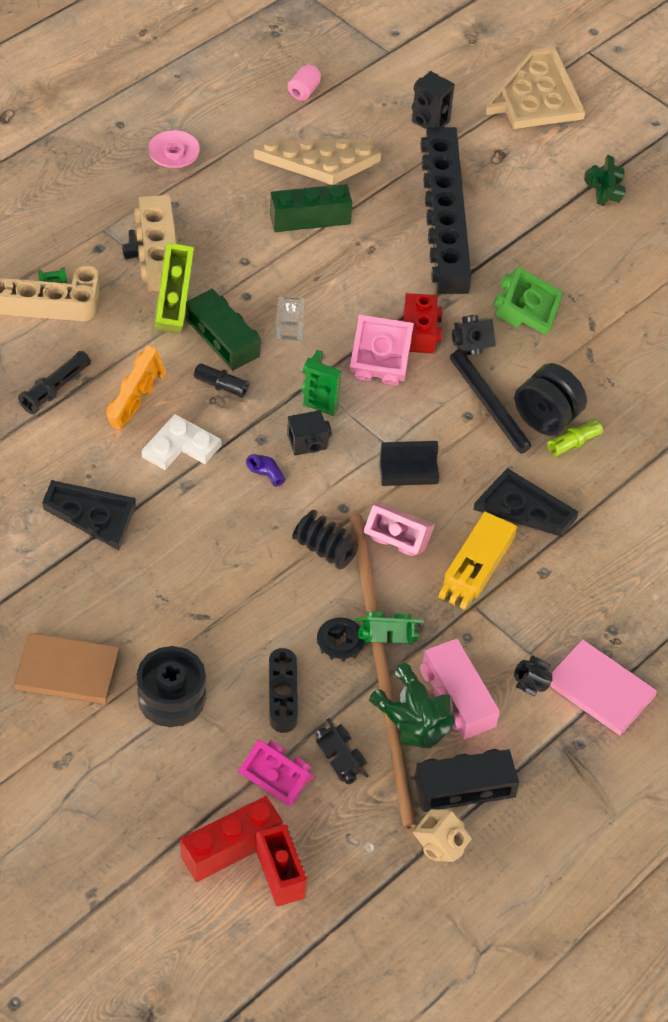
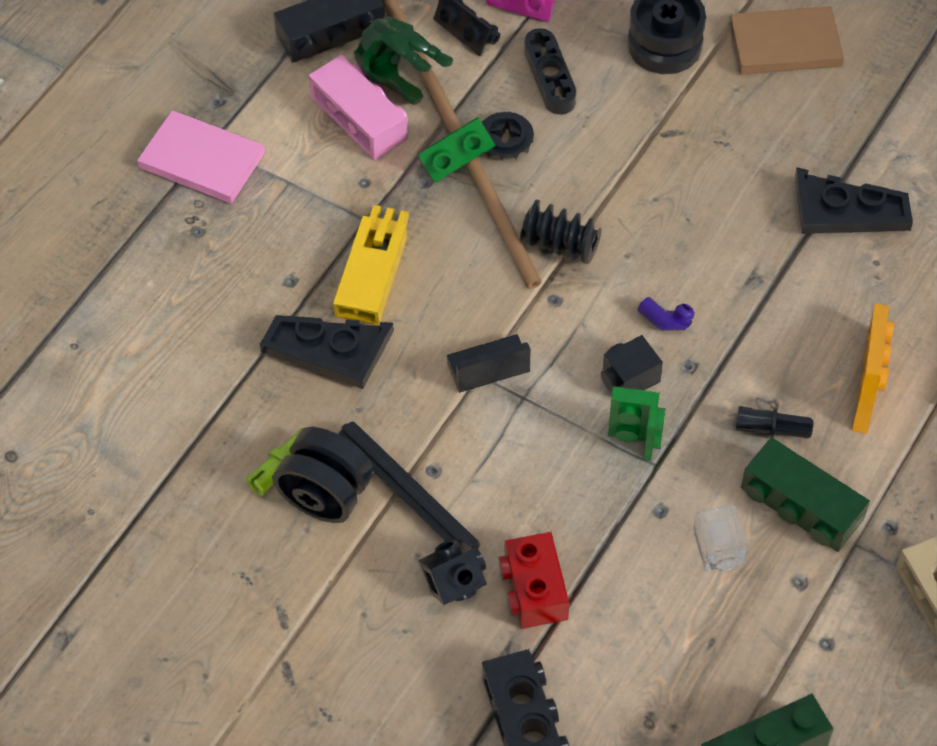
camera: 170 degrees right, 5 degrees up
(173, 288) = (895, 504): lime brick -> none
(177, 437) = (785, 335): white plate -> none
(381, 349) = (574, 499): bright pink plate -> none
(398, 528) = (475, 260): bright pink brick -> none
(527, 301) = (389, 660): bright green plate -> none
(533, 675) = (279, 135): black gear -> none

